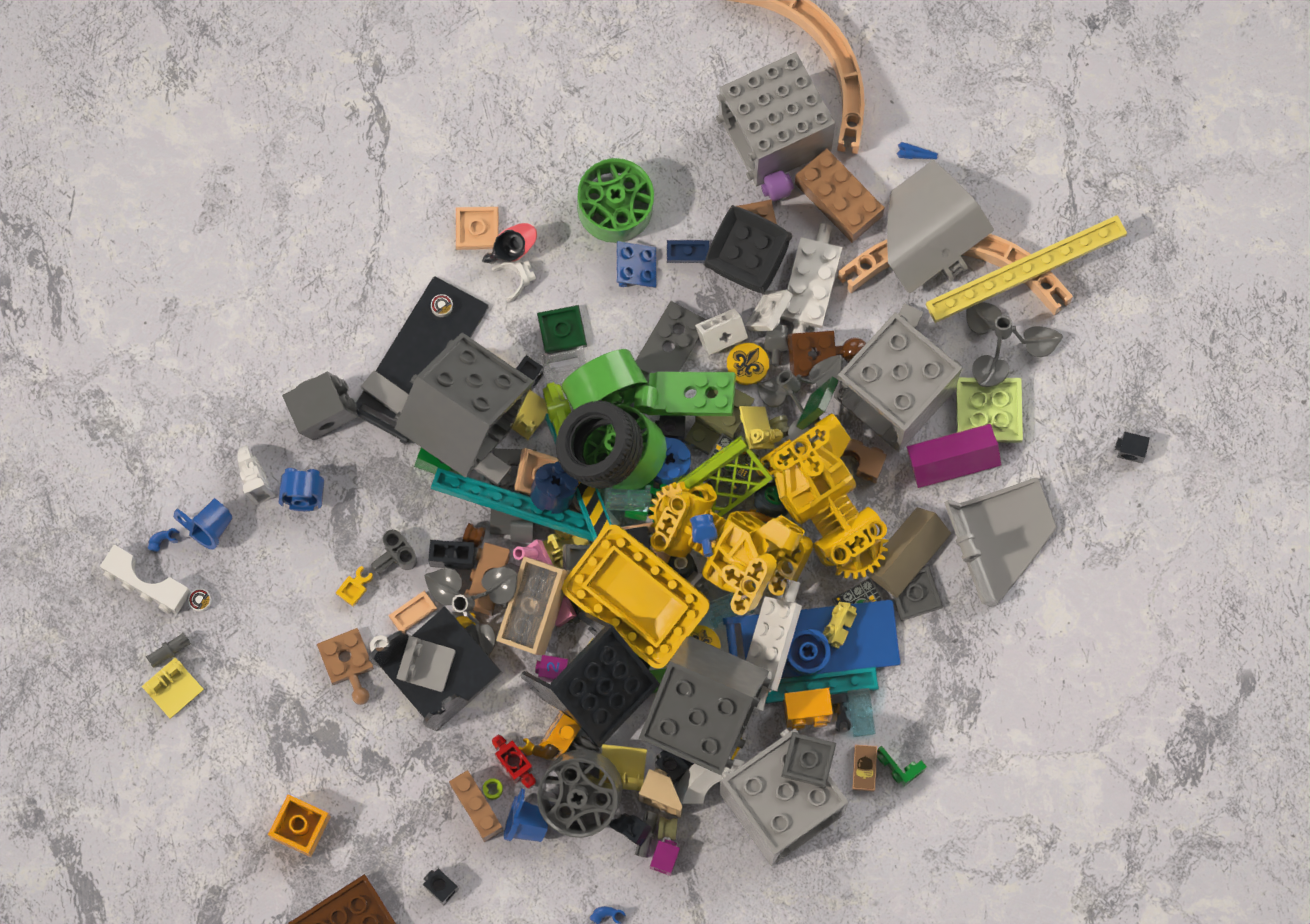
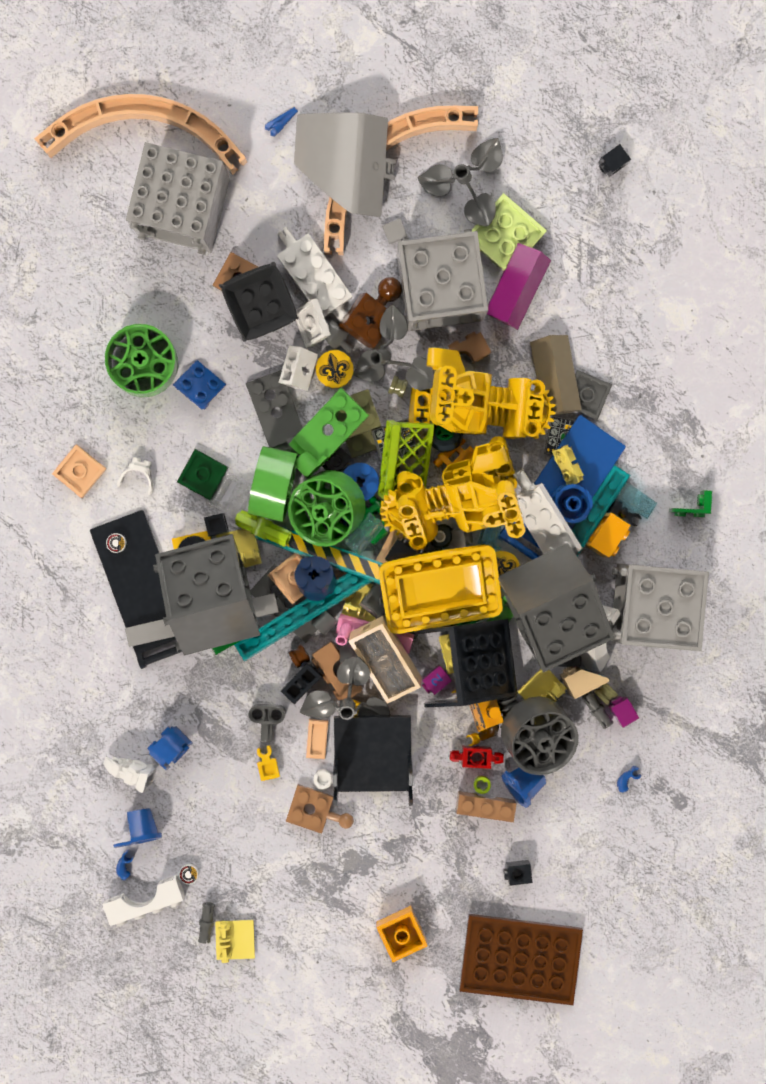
camera: 50 degrees left, 15 degrees up
(320, 405) = (120, 687): dark grey brick -> none
(426, 664) = (363, 763): light grey bracket -> none
(512, 243) = (113, 459): black hair -> none
(618, 463) = (295, 540): black tyre -> none
(631, 827) = (587, 716): black slope -> none
(687, 251) = (220, 341): dark blue plate -> none
(704, 532) = (442, 509): blue piece -> none
(758, 428) = (391, 404): light yellow hinge -> none
(777, 185) = (225, 238): medium lavender head -> none
(808, 759) = (659, 574): dark grey tile -> none
(817, 403) = (412, 350): dark green tile -> none
(839, 195) = (268, 202): medium nougat brick -> none
(864, 767) = (673, 529): medium nougat tile -> none
(1001, 535) = (598, 302): light grey panel -> none
(1026, 269) = (433, 120): light yellow plate -> none

